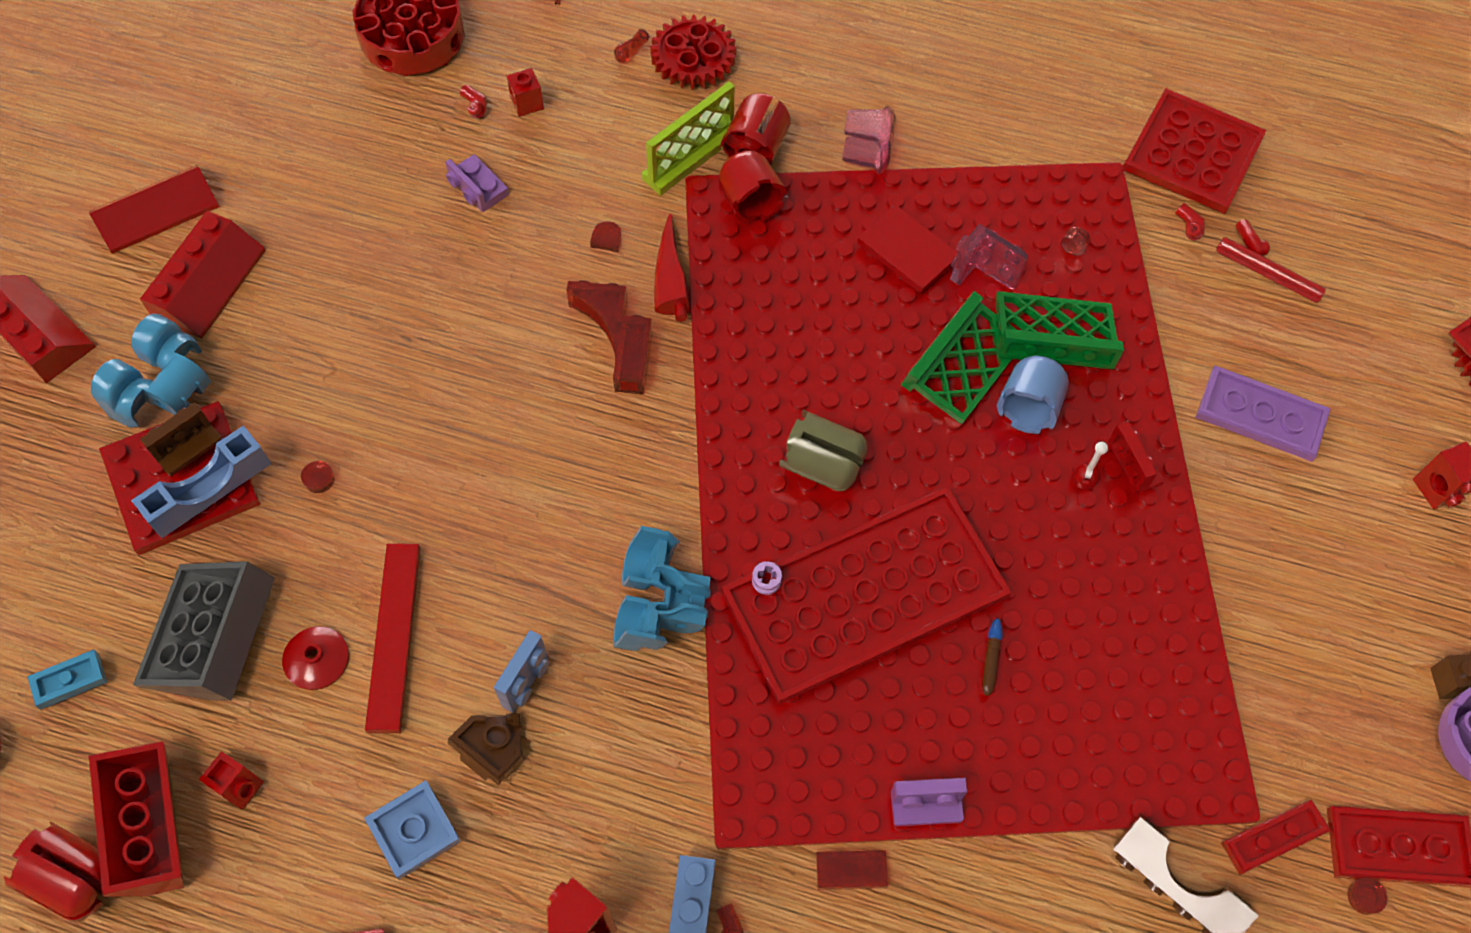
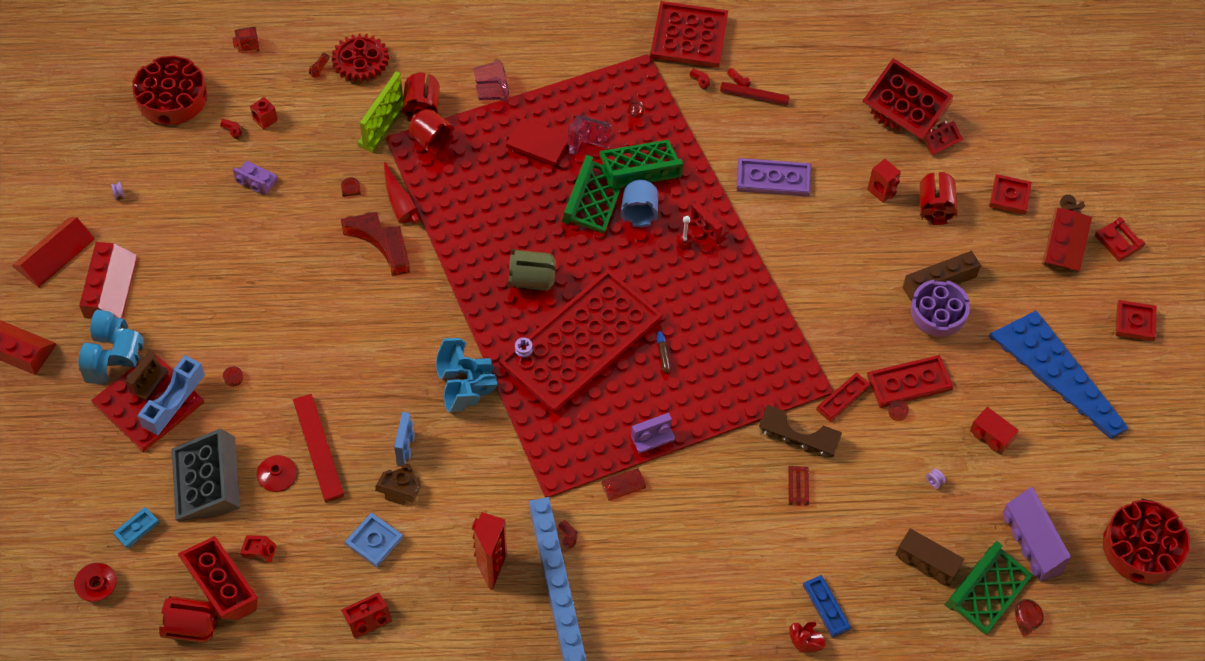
camera: 20 degrees left, 5 degrees down
(278, 145) = (117, 190): none -> lavender bush

